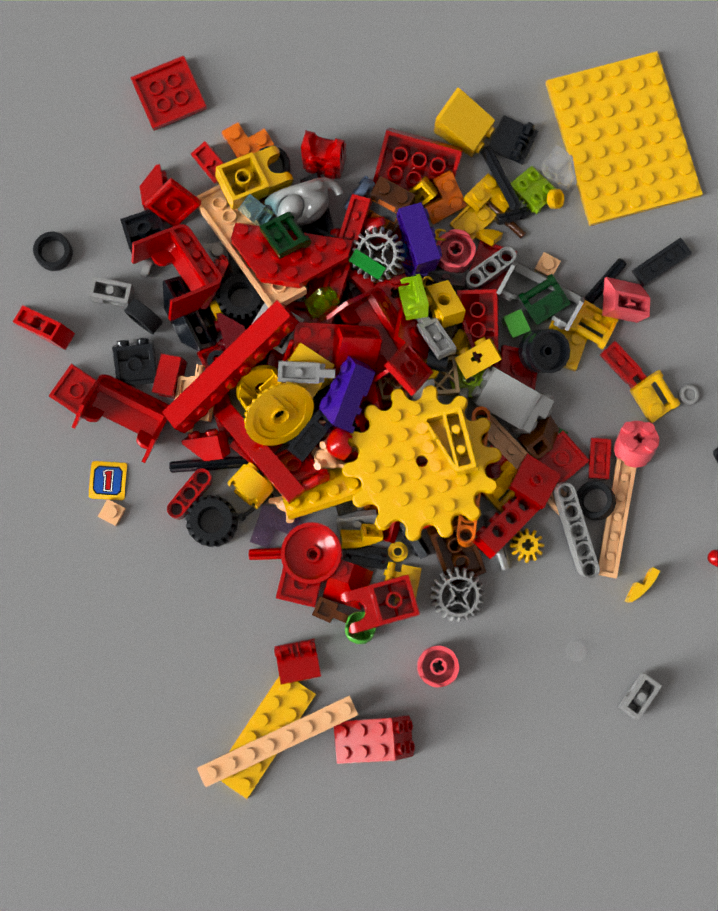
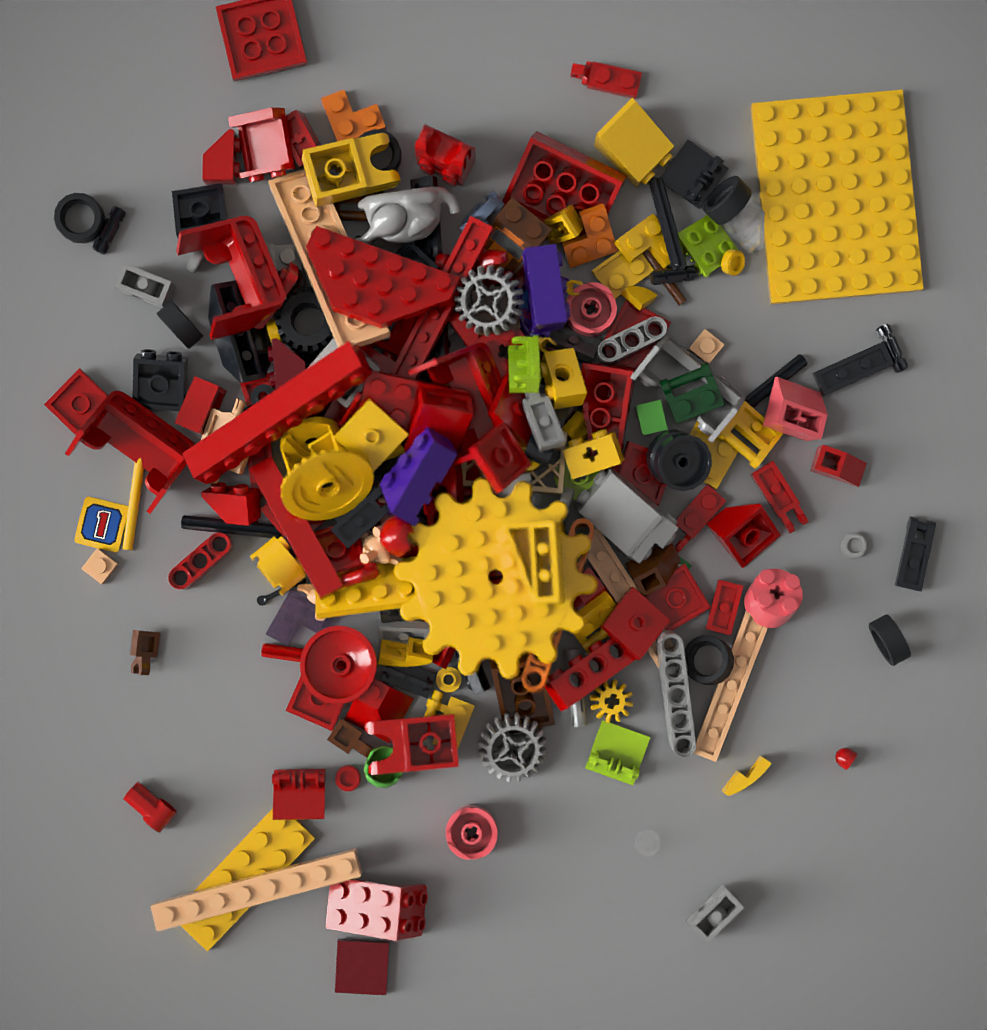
camera: 10 degrees right, 5 degrees up
(44, 327) = (52, 315): red slope -> none
(76, 256) = (109, 230): none -> black axle
(130, 462) = (133, 506): none -> yellow bar
(157, 568) = (144, 647): none -> reddish brown plate
(173, 202) = (241, 184): red plate -> none
(185, 166) = (264, 143): none -> panel
(185, 694) = (155, 810): none -> red piece
(196, 512) = (200, 597): black tyre -> none
(255, 210) = (344, 215): clear light blue panel -> none
(279, 237) = (367, 260): dark green plate -> none
(303, 372) = (366, 439): light grey hinge -> none
(321, 301) = (407, 348): clear neon green bracket -> none
(333, 642) = (348, 778): none -> red tile
(367, 264) = (472, 312): green sticker -> none
(370, 789) = (361, 967): none -> dark red tile
(434, 80) = (608, 78): none -> red hinge
(493, 471) = (585, 603): dark red plate -> none
(539, 585) = (617, 752): none -> lime hinge
(542, 152) = (727, 200): none -> black tyre
(566, 391) = (698, 514): none -> red hinge
(603, 398) = (744, 531): none -> red slope
(649, 400) = (801, 545): yellow plate -> none
(665, 335) = (838, 465): none -> red slope
(680, 231) = (893, 347): none -> black axle

